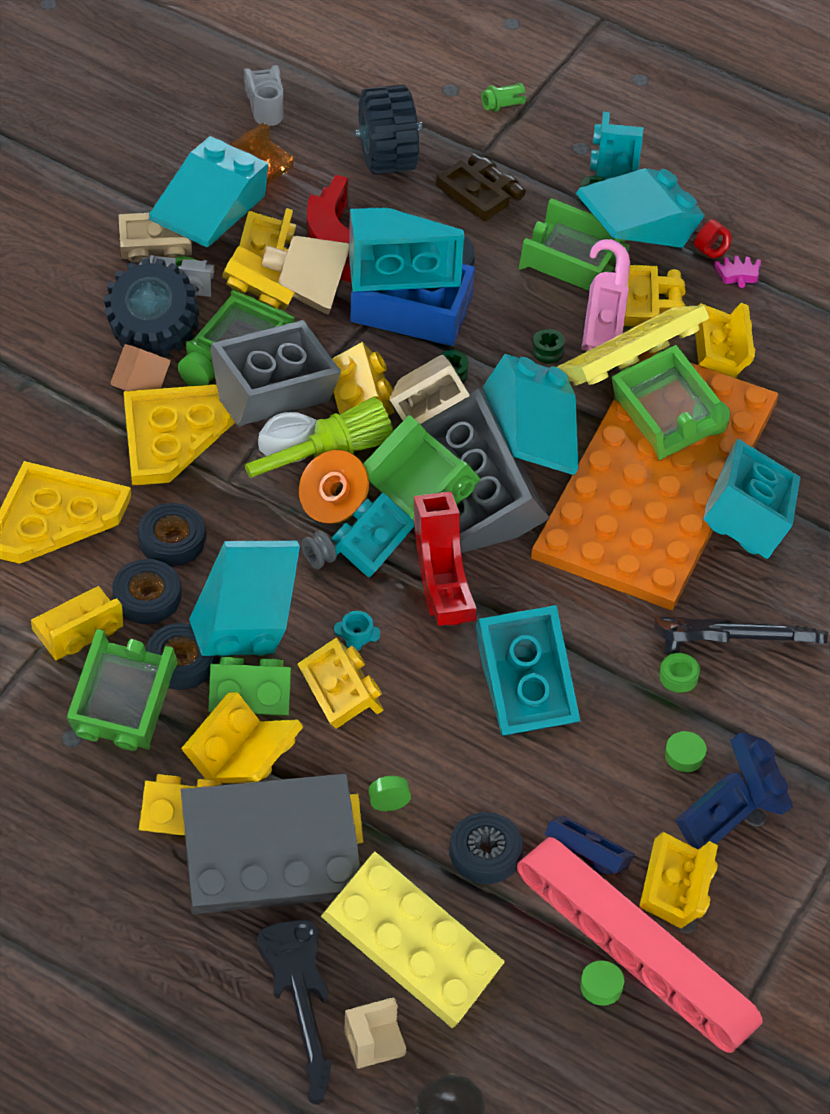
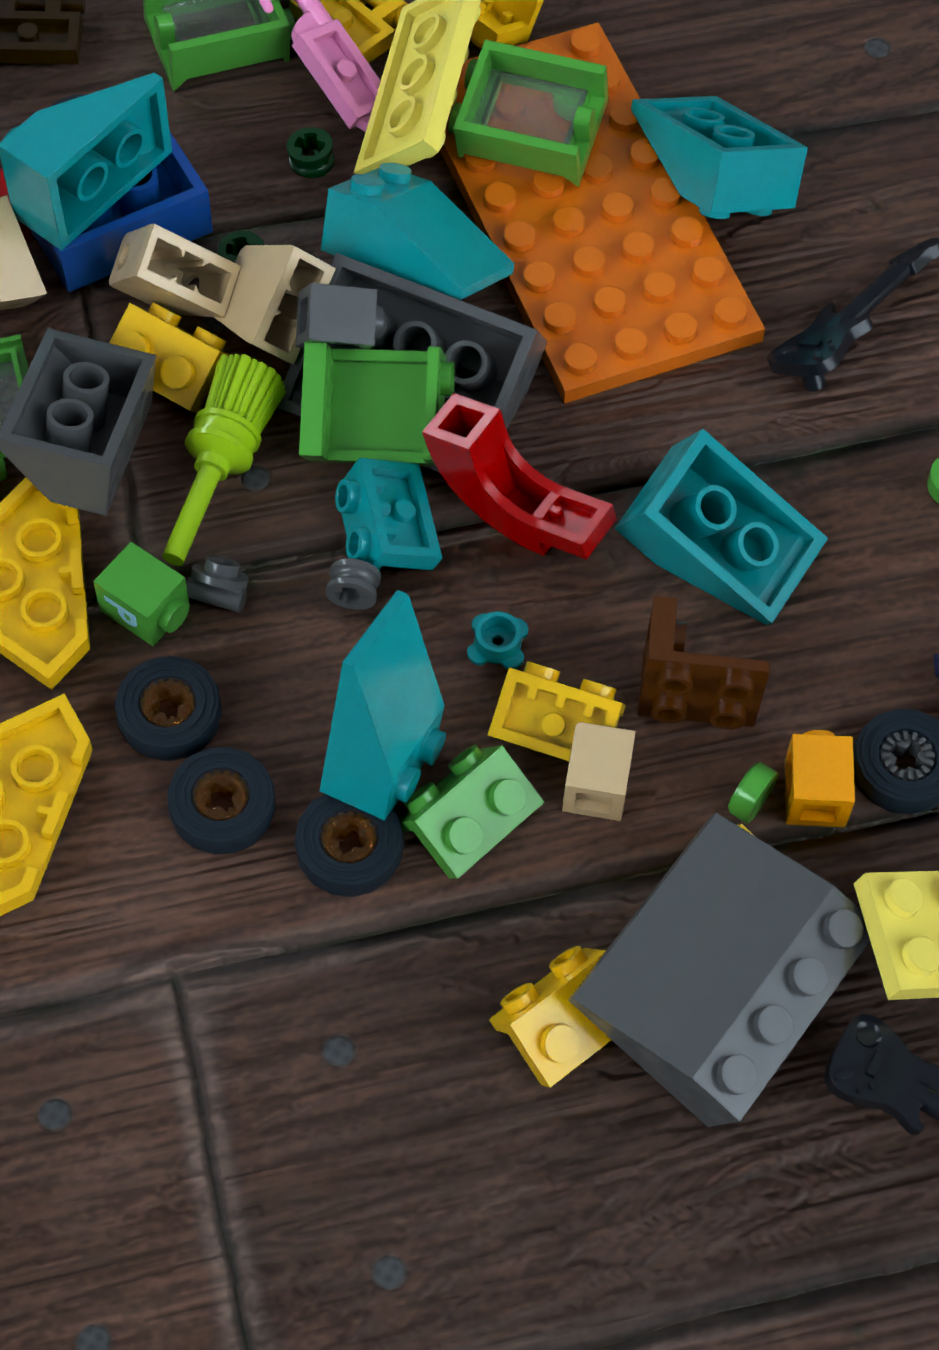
camera: 45 degrees left, 10 degrees up
(74, 623) = (187, 909): yellow bracket -> none
(121, 692) = (354, 944): window -> none
(217, 475) = (142, 594): none -> bright green brick
(236, 745) = (558, 882): yellow bracket -> none
(259, 500) = (218, 583): none -> dark grey plate
(284, 432) = (157, 482): white hat -> none
(322, 479) = (259, 505): orange dish -> none
(328, 721) = (598, 771): none -> tan panel
(395, 342) = (161, 264): none -> tan torso
(411, 713) = (695, 685): none -> reddish brown bracket
(428, 815) = (819, 779): none -> light orange brick
(440, 417) = (338, 316): none -> dark grey brick
(679, 672) = (851, 401): bright green tile -> none

